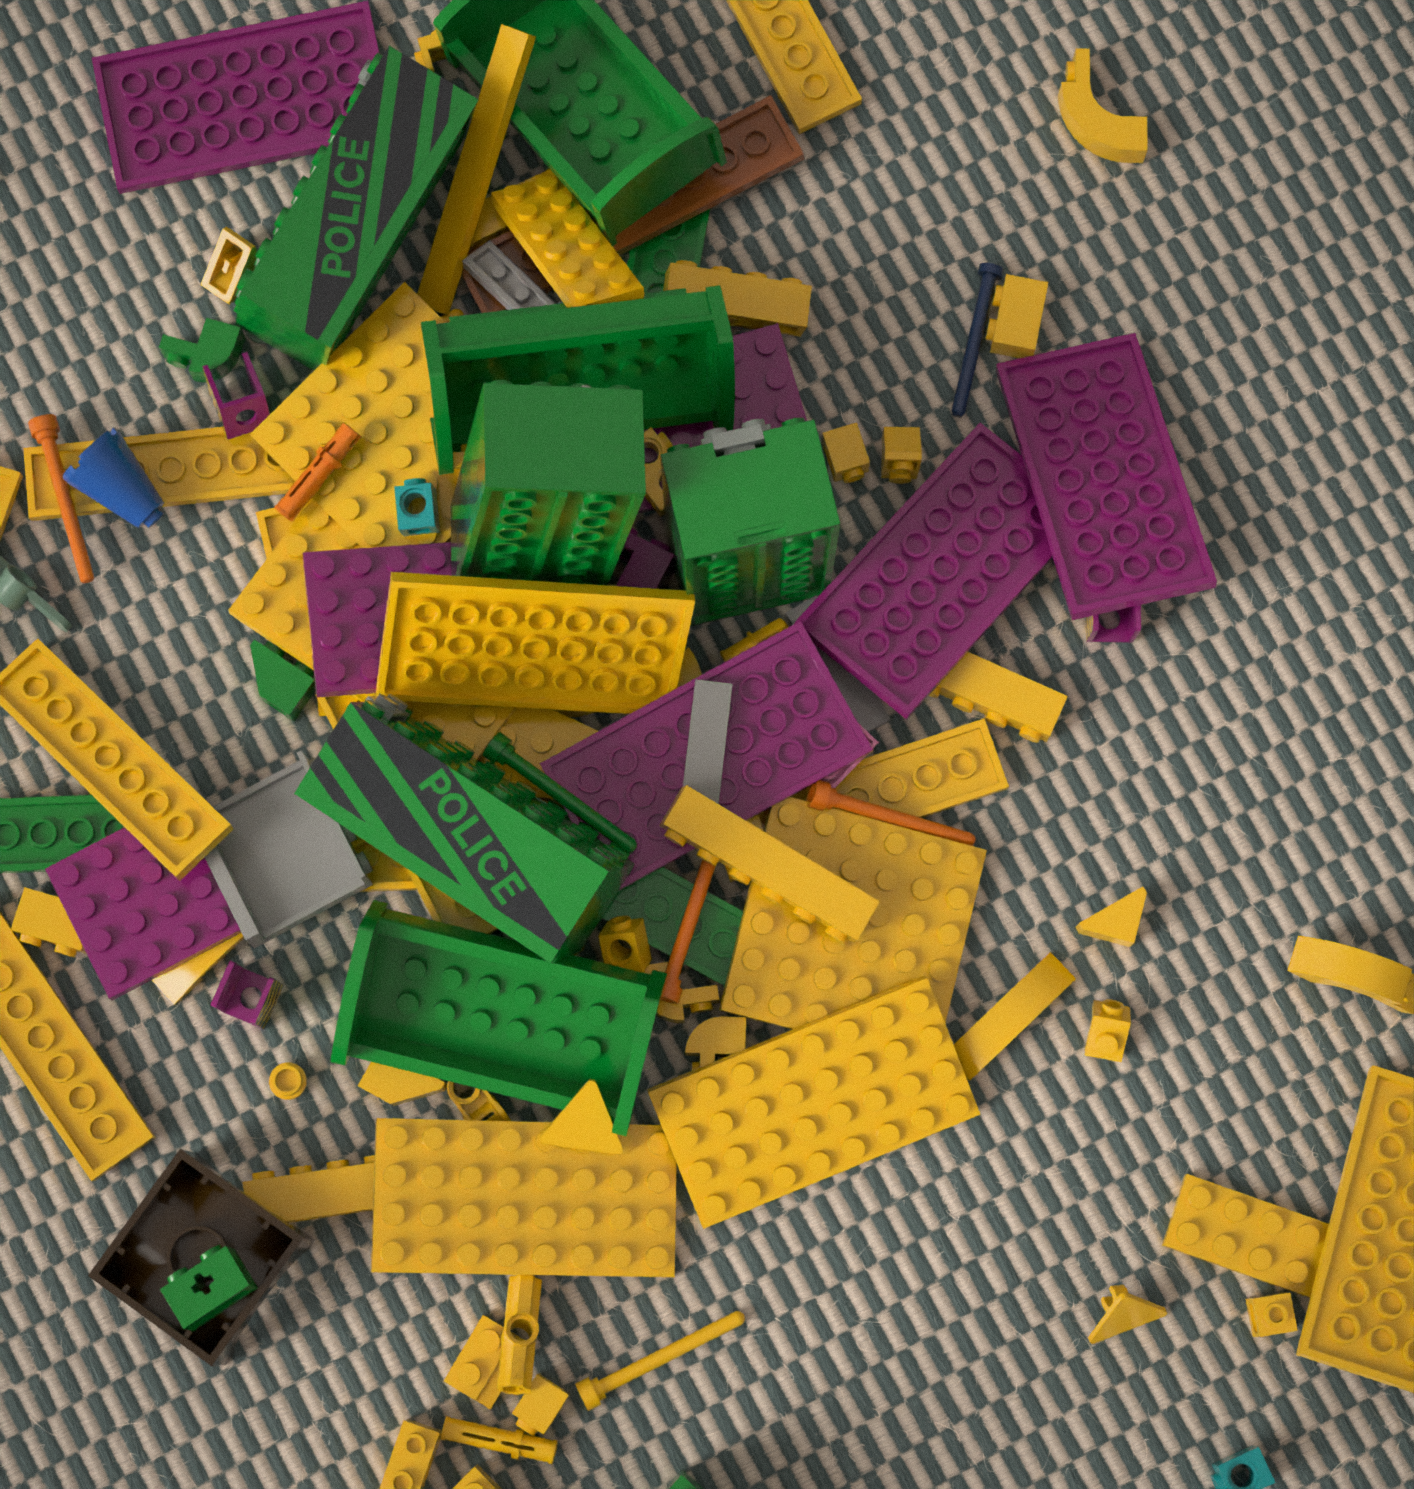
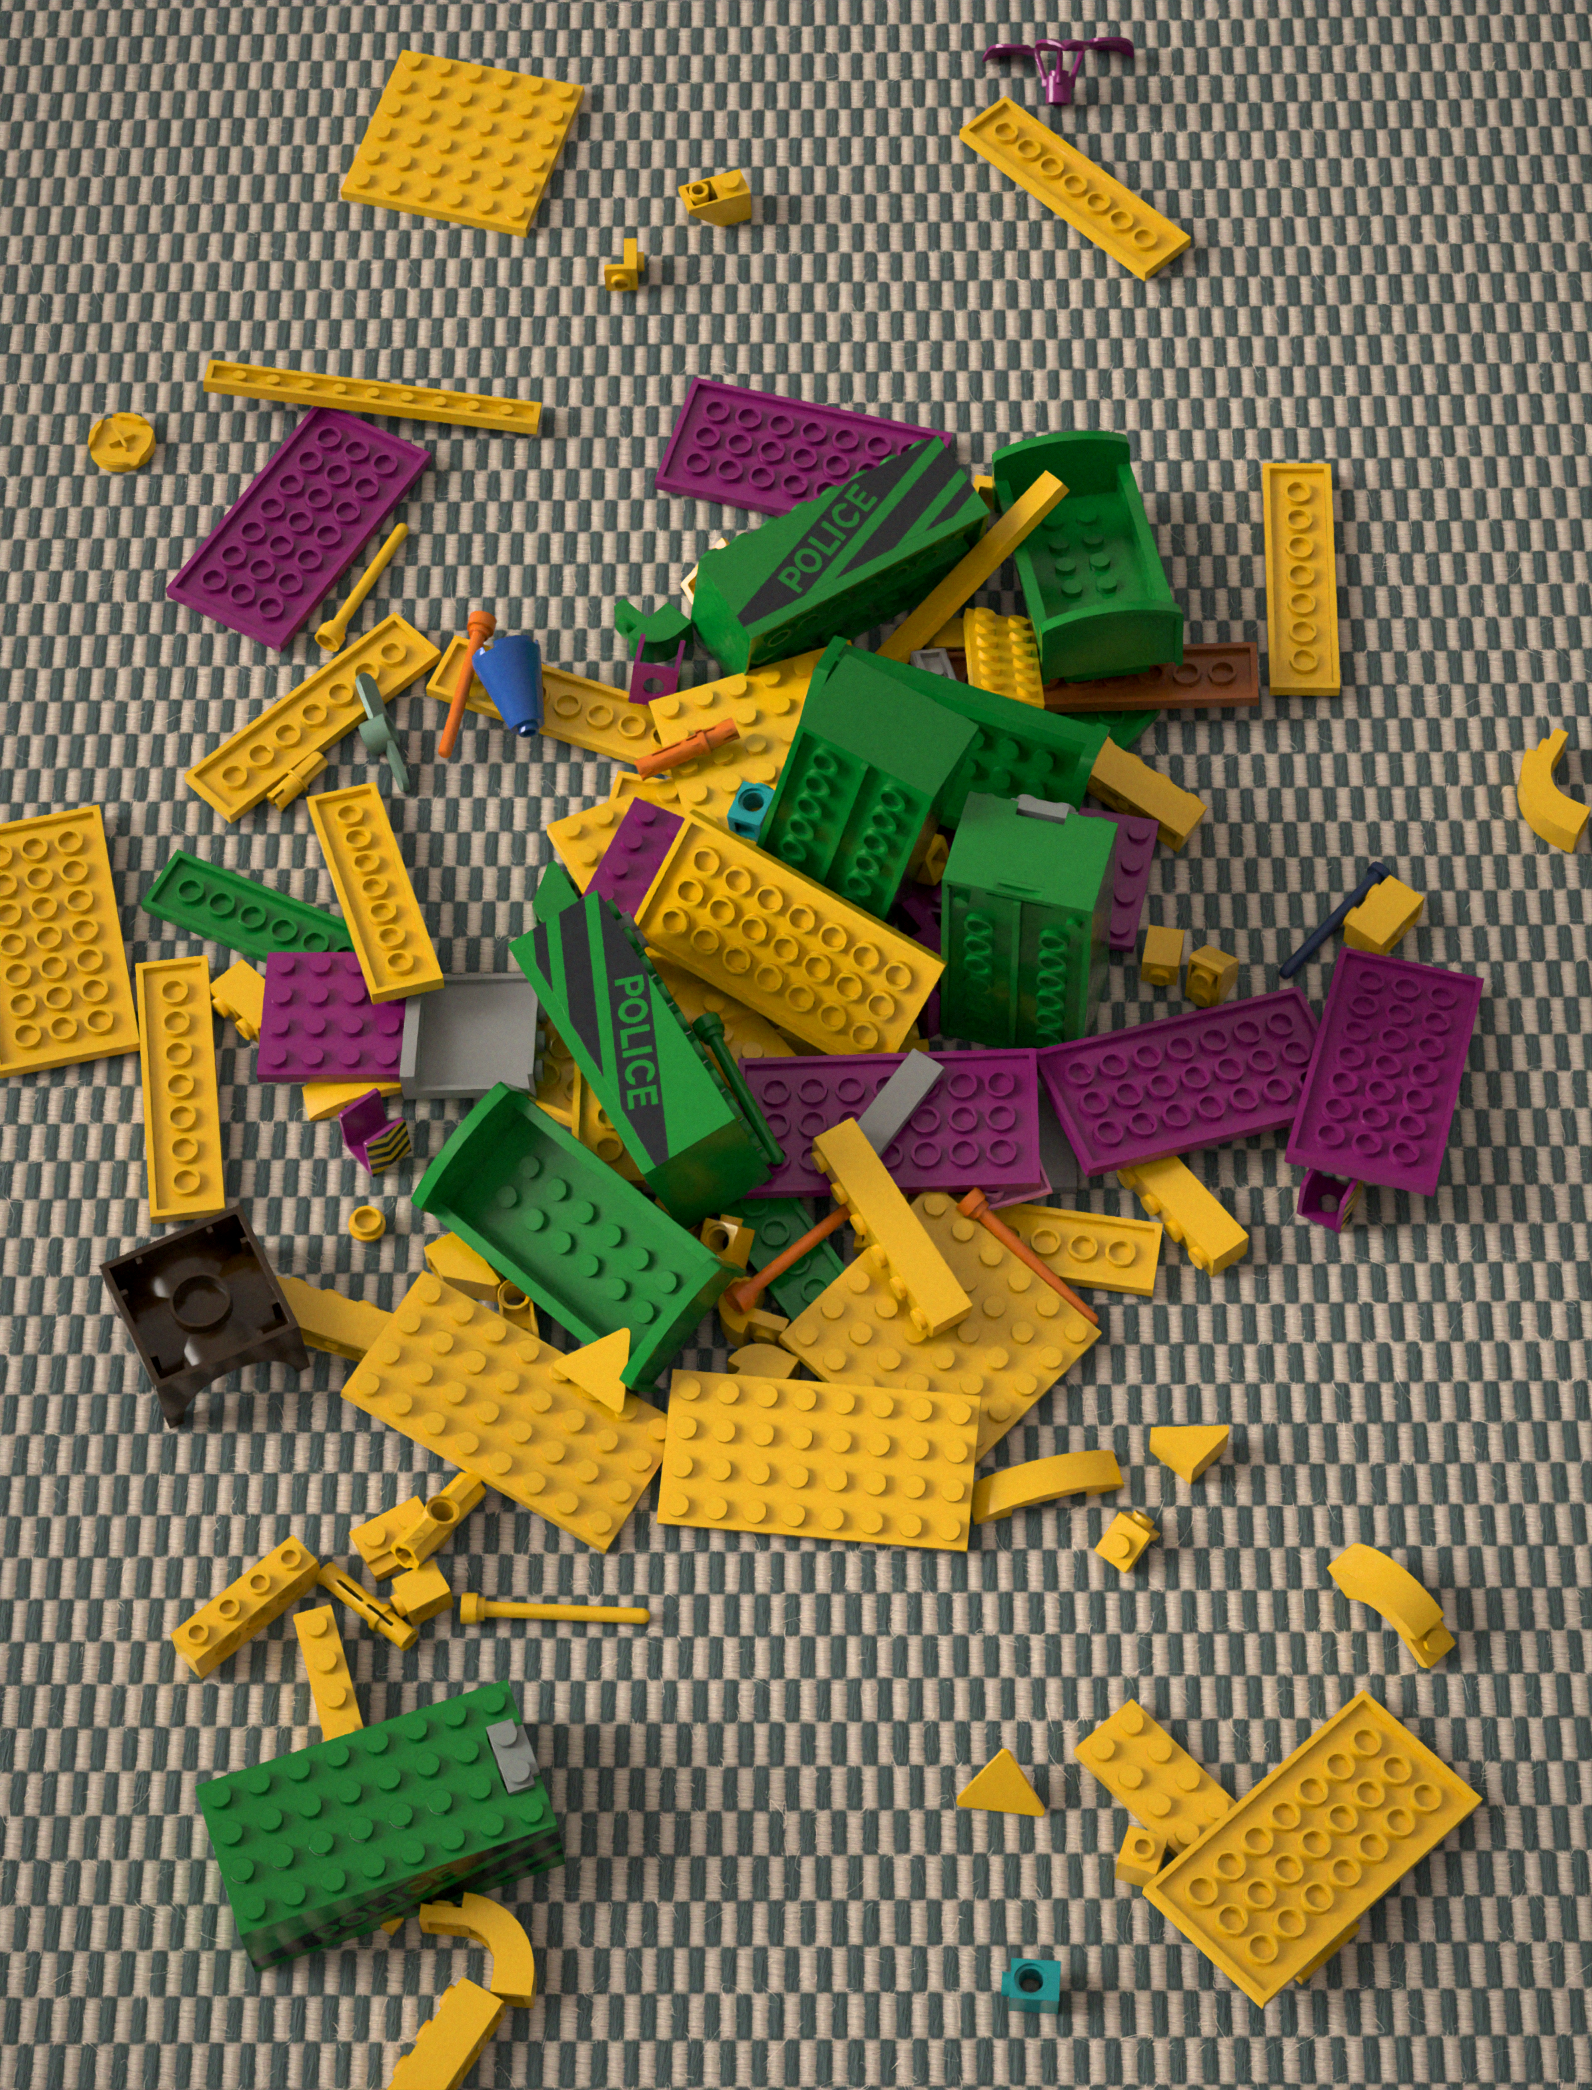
camera: 30 degrees right, 20 degrees down
(229, 1286) = (193, 1320): green brick -> none

